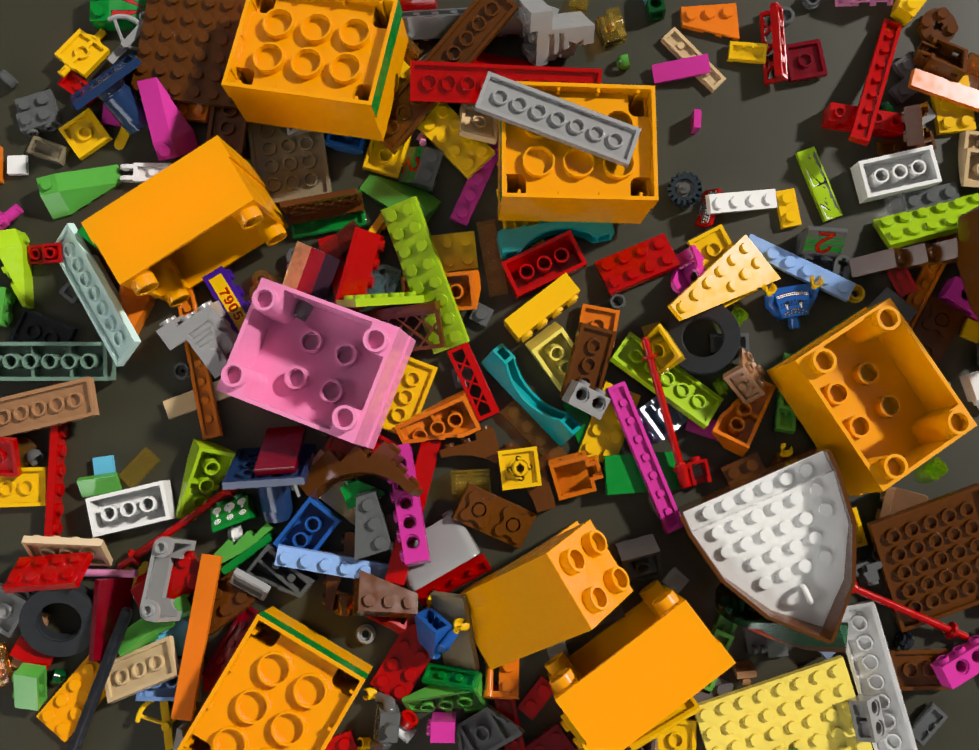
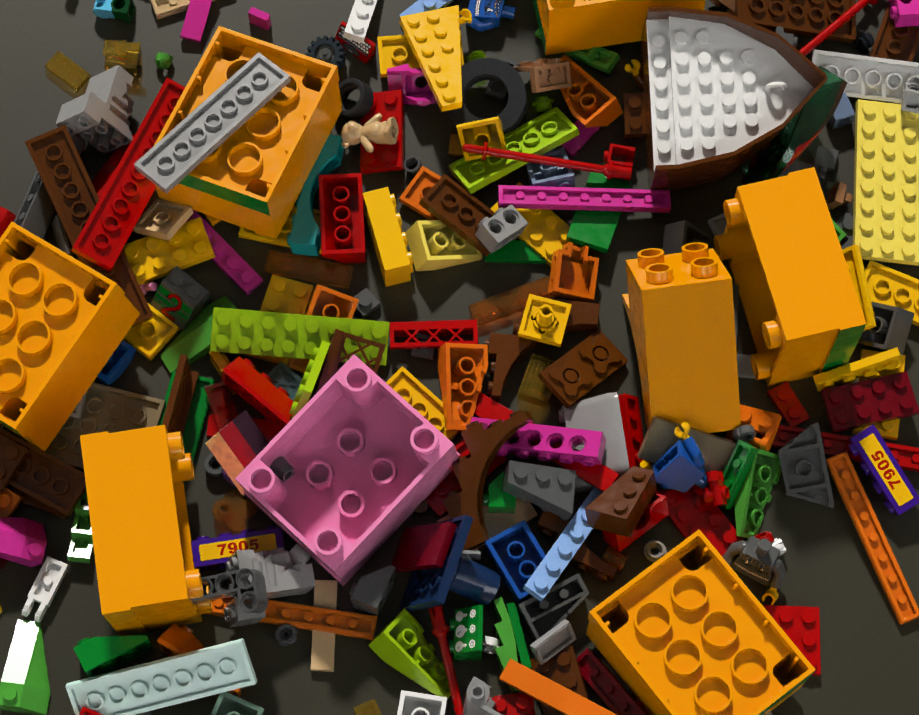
camera: 70 degrees left, 15 degrees down
(180, 320) = (238, 587): none -> dark grey beam
(235, 423) = (372, 591): none -> dark grey slope
(430, 667) = (716, 492): none -> red plate
(442, 727) = (782, 503): dark pink brick -> none
(488, 673) = (744, 433): none -> dark grey tile
(503, 367) = (514, 270): teal arch -> none
(629, 256) = (372, 131): none -> tan piece
(657, 238) = (365, 100): none -> black tyre

